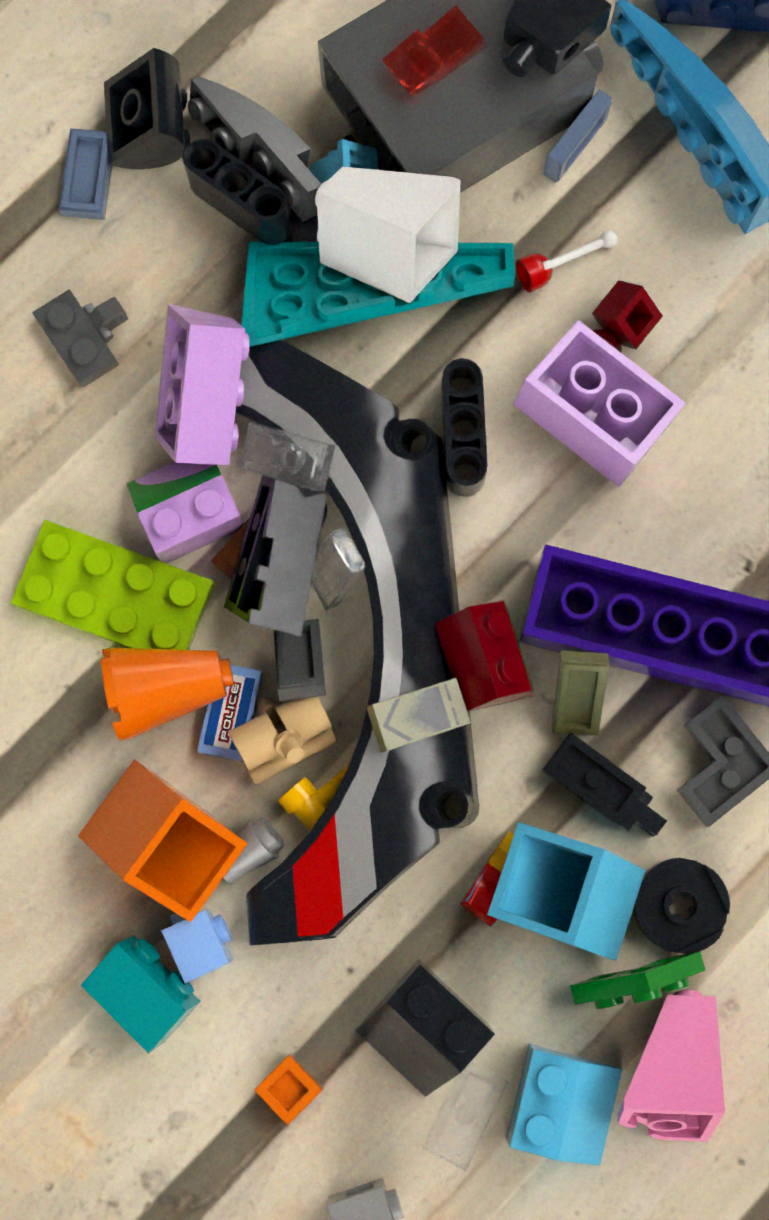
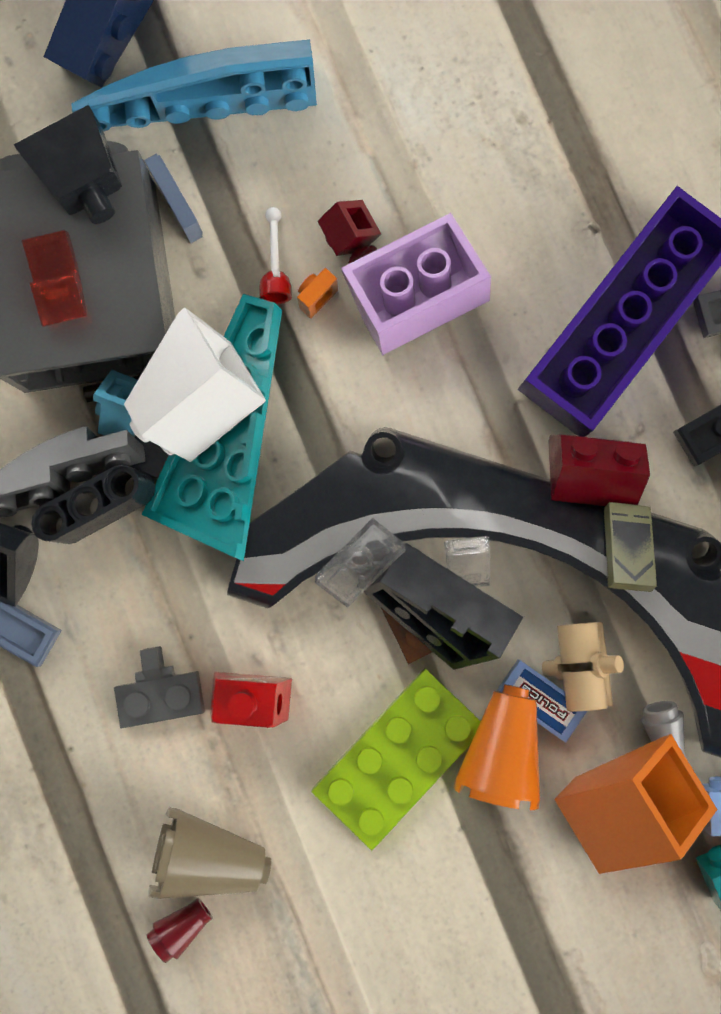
camera: 70 degrees left, 5 degrees up
(111, 416) = (250, 699): none -> red torso
(184, 508) = (348, 666): lavender slope -> none
(200, 386) = (261, 611): lavender slope -> none
(300, 663) = (540, 627): dark grey tile -> none
(309, 802) = (646, 665): yellow brick -> none
(468, 407) = (371, 389): black beam -> none
(546, 312) = (316, 292): none -> orange plate
(580, 692) = (653, 407): olive tile -> none

